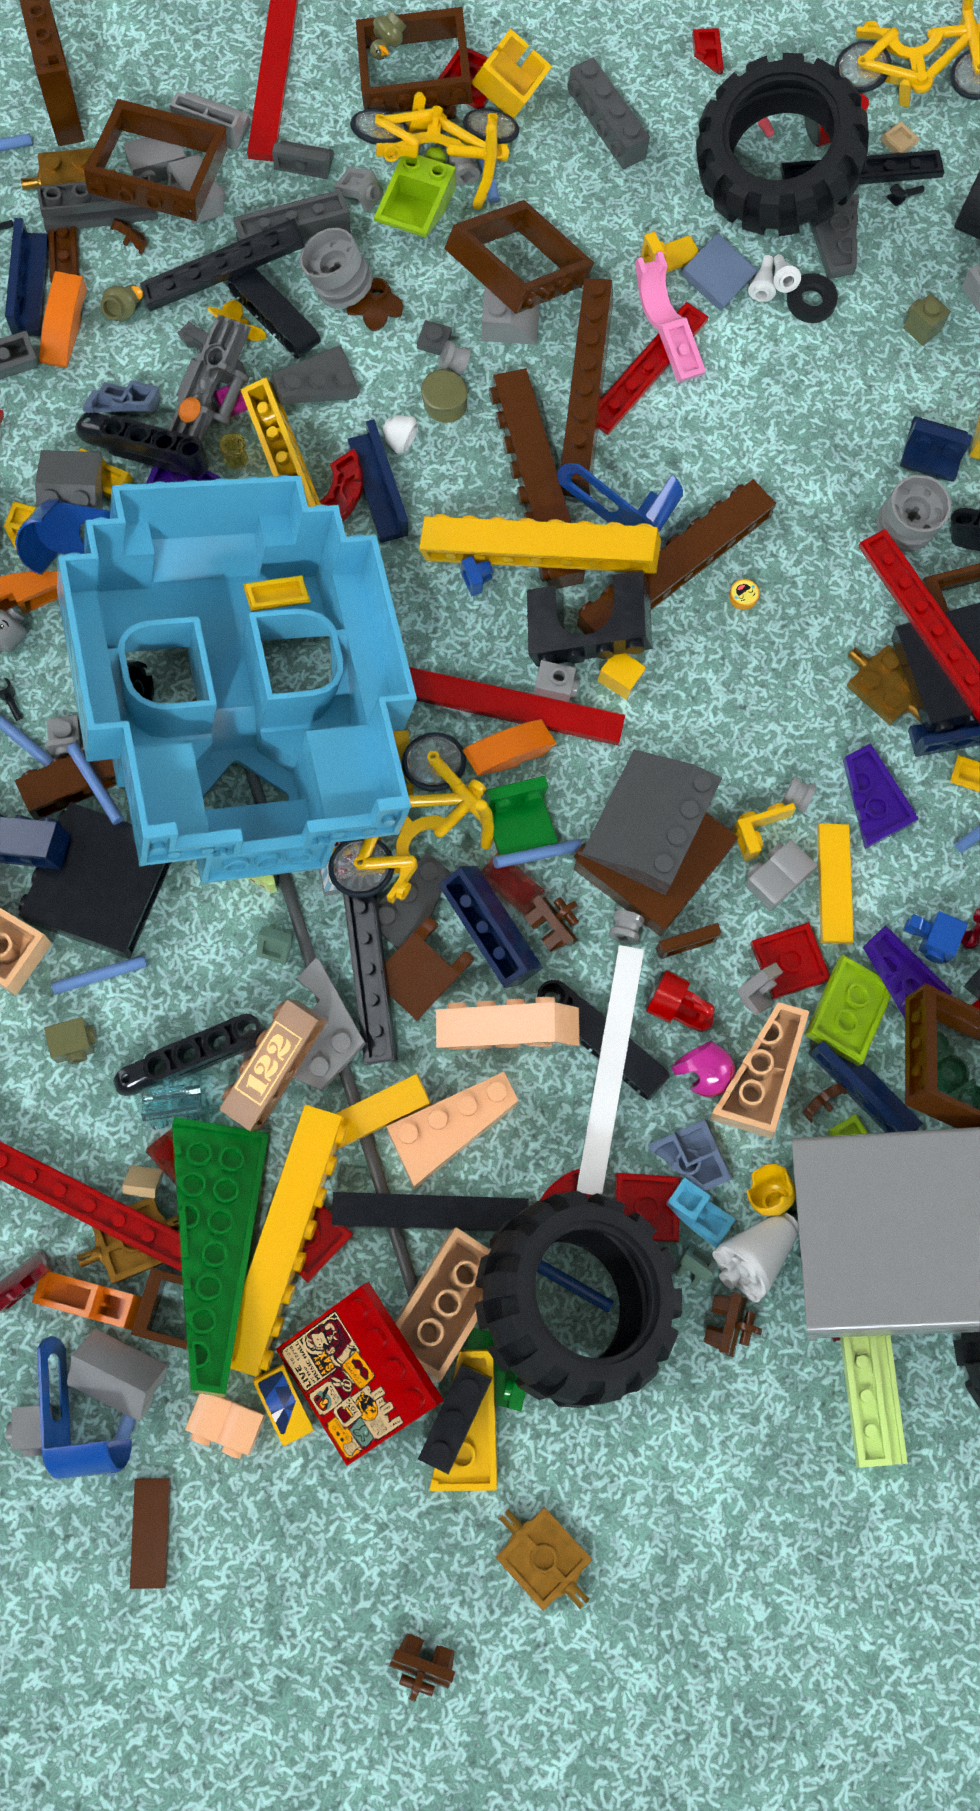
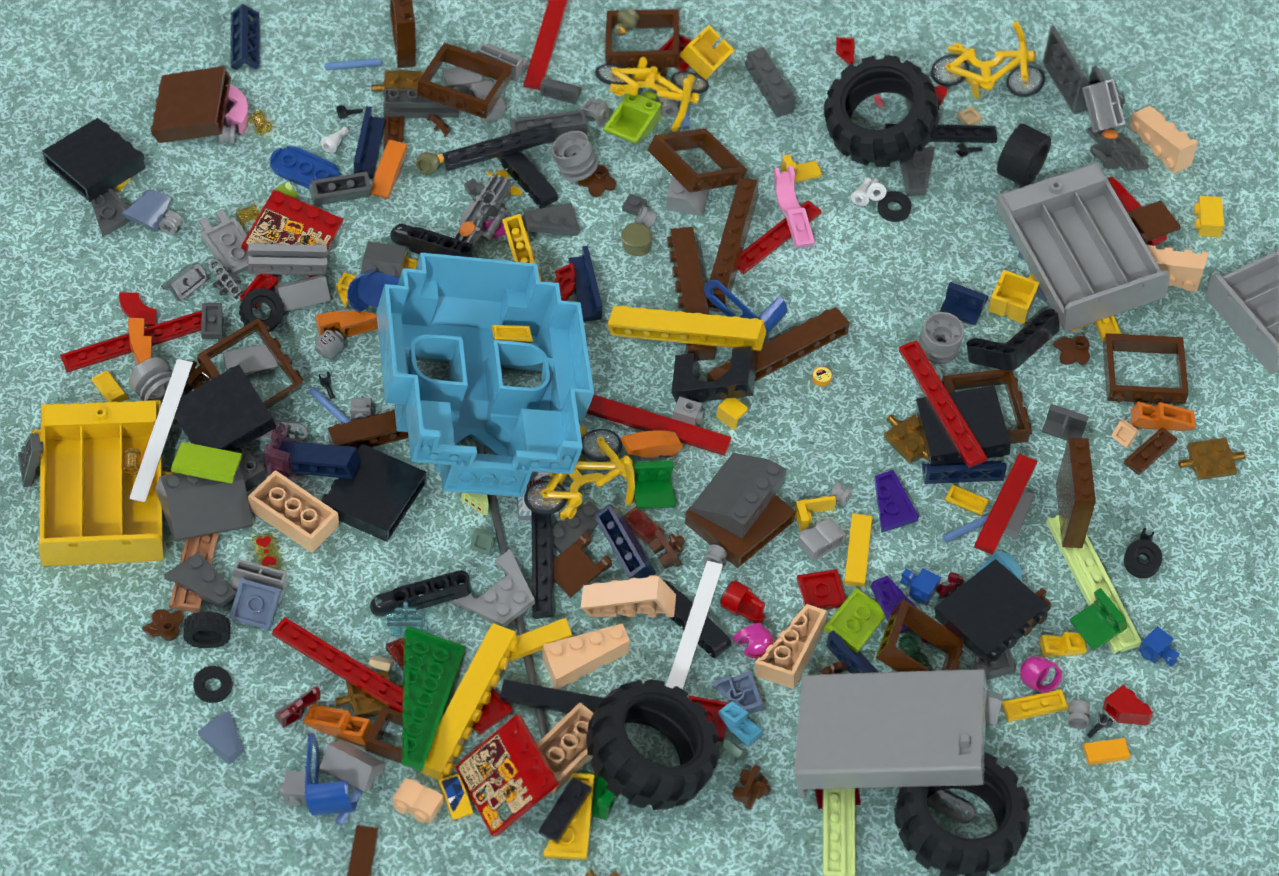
camera: 10 degrees right, 20 degrees down
(71, 1040) = (345, 579): olive brick -> none
(95, 783) = (380, 434): medium blue bar -> none
(99, 974) = (367, 547): medium blue bar -> none
(115, 398) = (431, 219): sand blue slope -> none
(229, 448) = (489, 252): clear yellow bush -> none
(273, 1064) = (474, 603): brick -> none
(400, 432) = (604, 257): white cone -> none
(475, 574) = (643, 344): blue tile -> none
(536, 853) = (660, 508): medium blue bar -> none
(575, 1286) = (648, 753): blue bar -> none
(688, 941) = (754, 569): reddish brown tile -> none
(718, 272) = (832, 184): sand blue tile -> none
(754, 990) = (797, 597): light grey bracket -> none
(756, 1255) = (770, 748): white cone -> none
(771, 1190) = (787, 714): yellow hair -> none
(926, 319) = (969, 225): olive brick -> none

